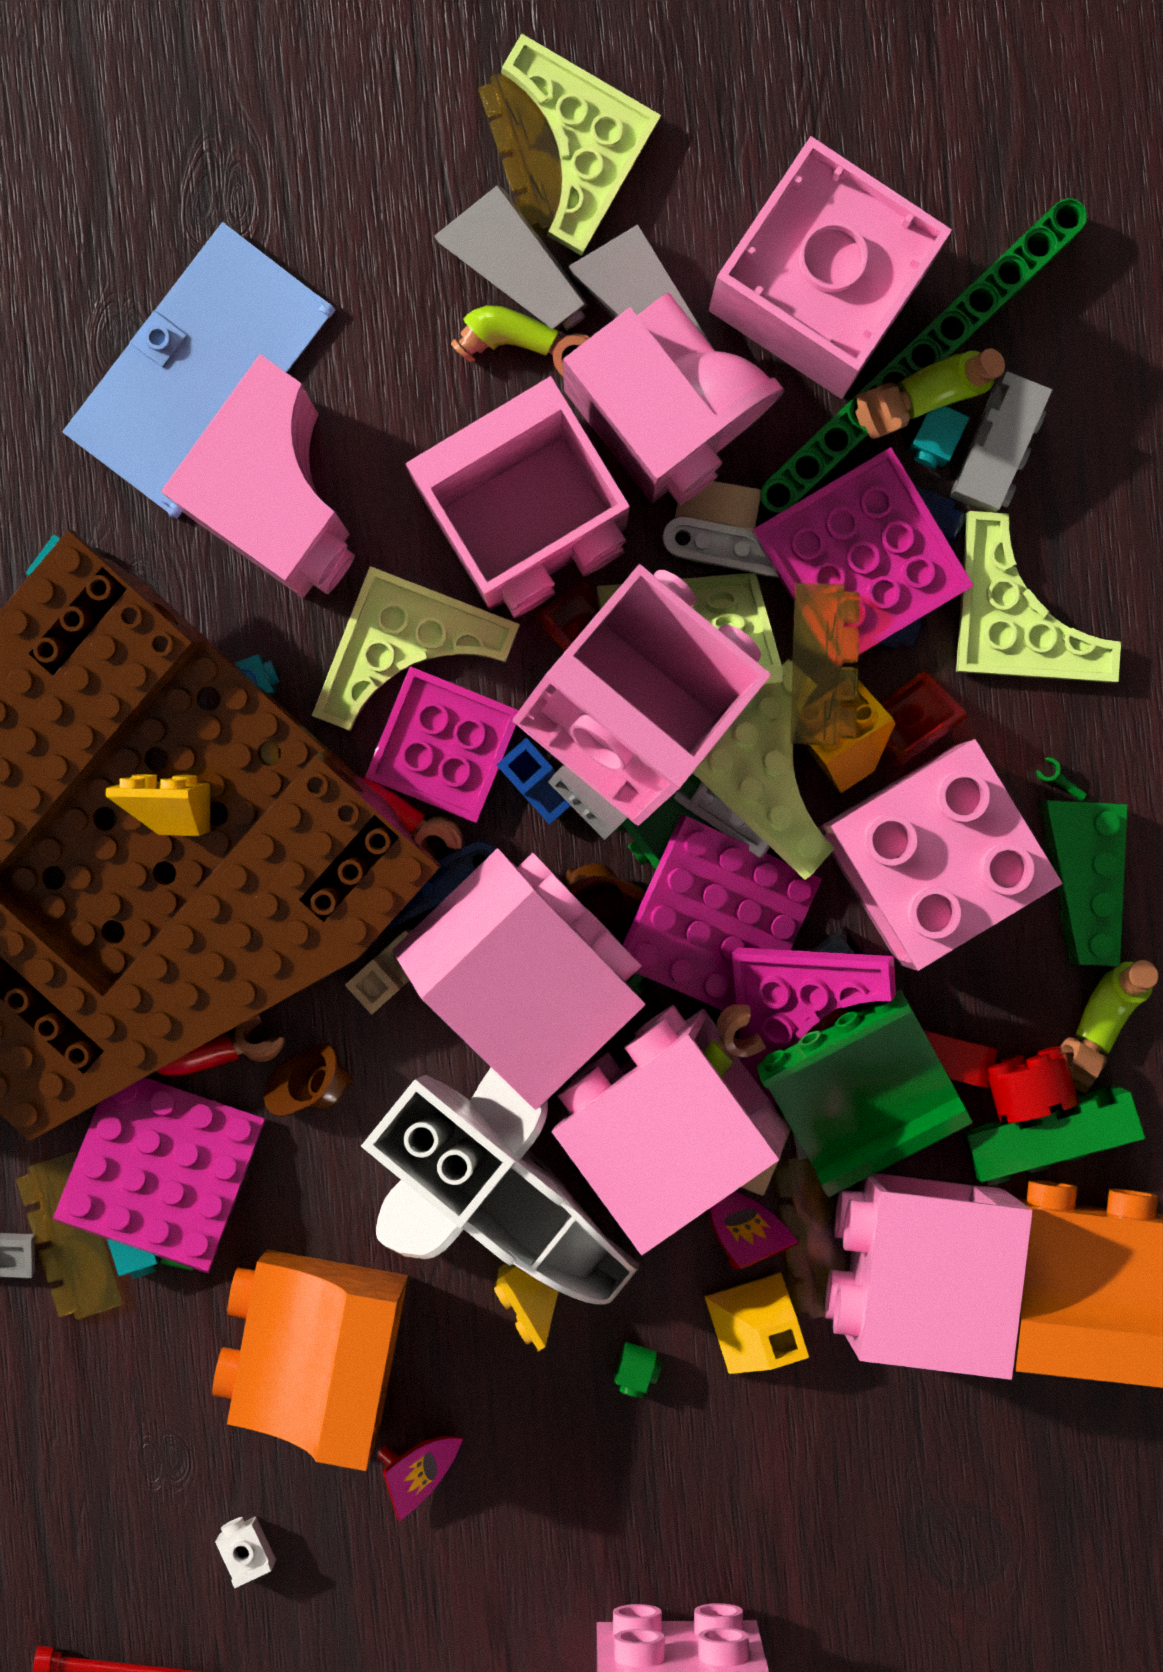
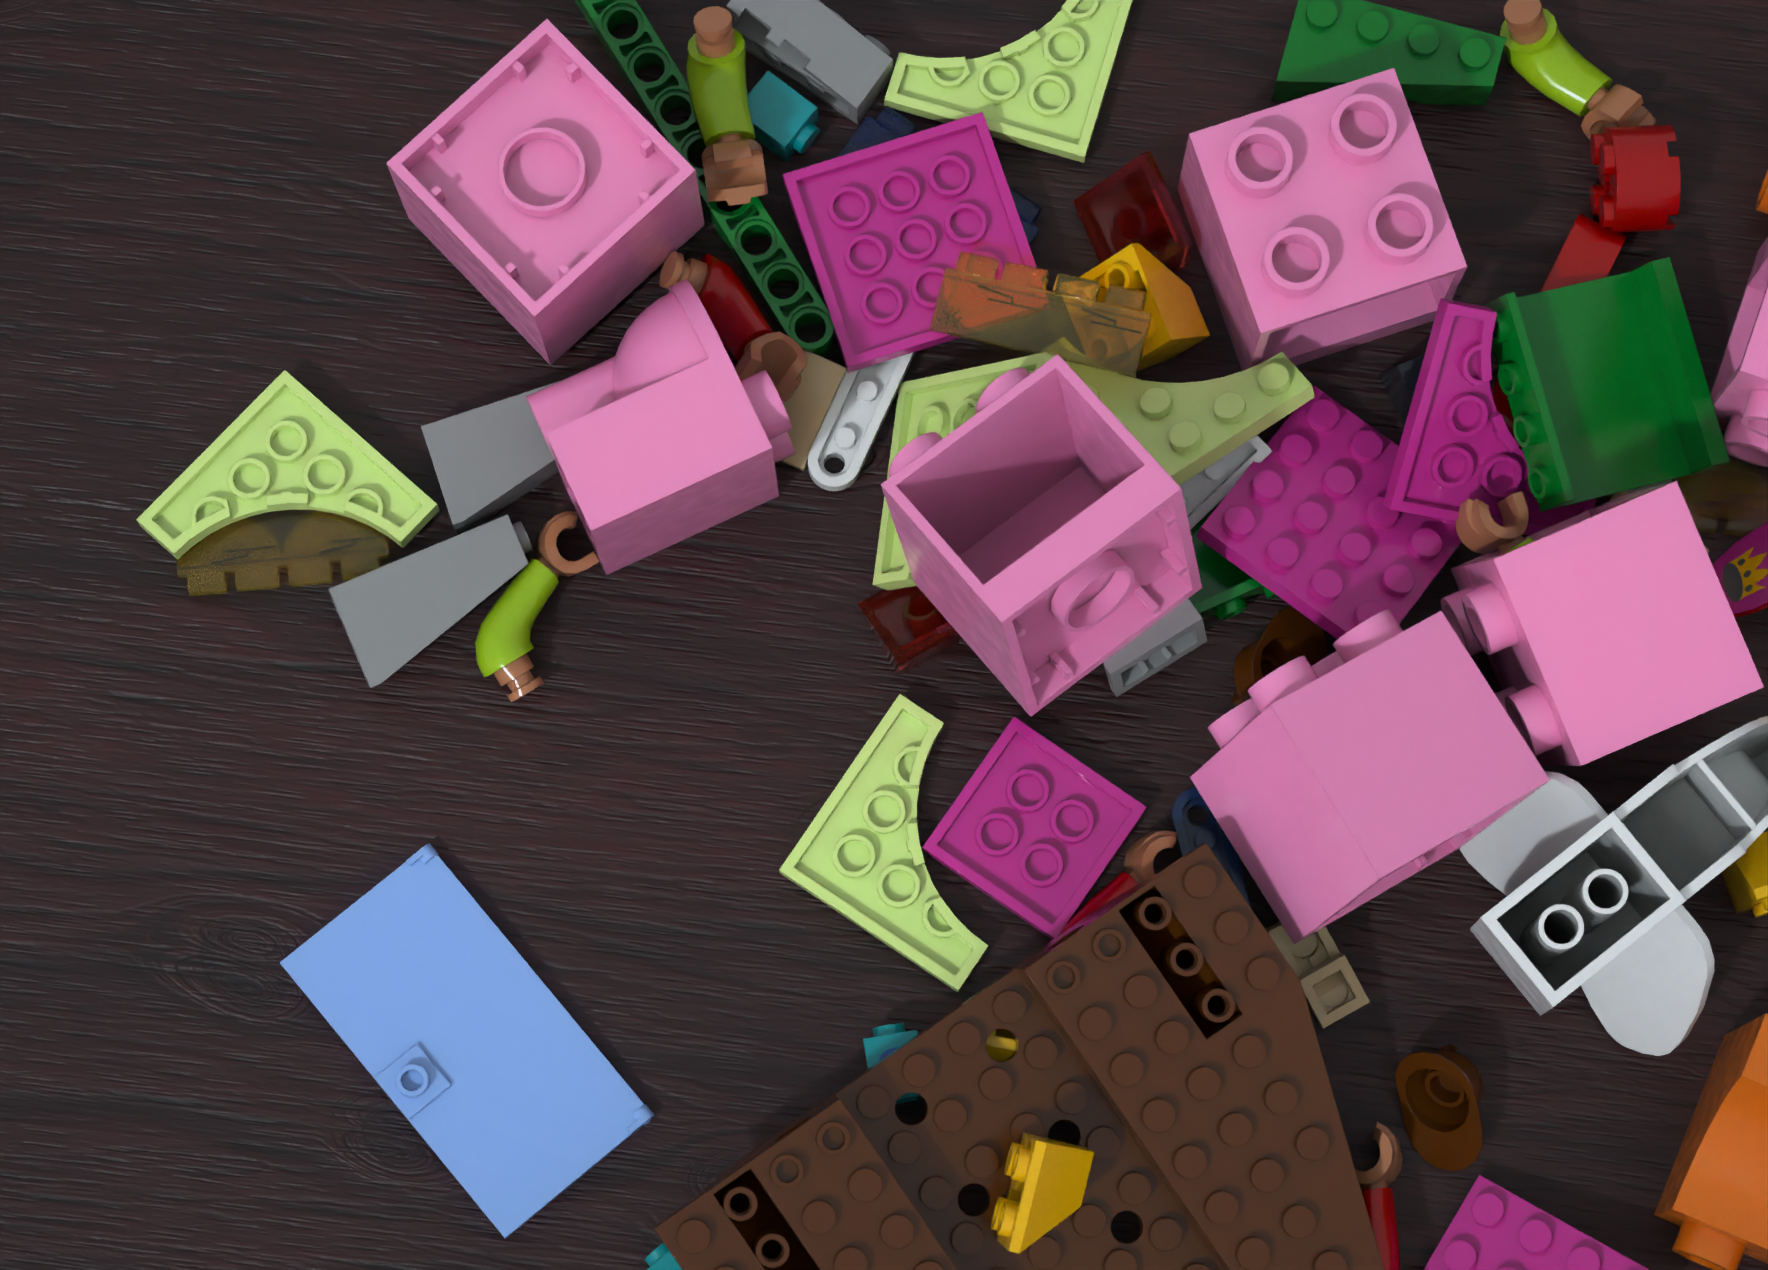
camera: 75 degrees left, 10 degrees down
(255, 484) = (661, 971): bright pink brick -> none
(523, 498) = (752, 638): bright pink piece -> none
(530, 775) = (1102, 720): blue brick -> none
(781, 431) = (739, 321): none -> piece
(1060, 780) = (1249, 65): green hand -> none
(1097, 1123) = (1699, 102): green wedge -> none

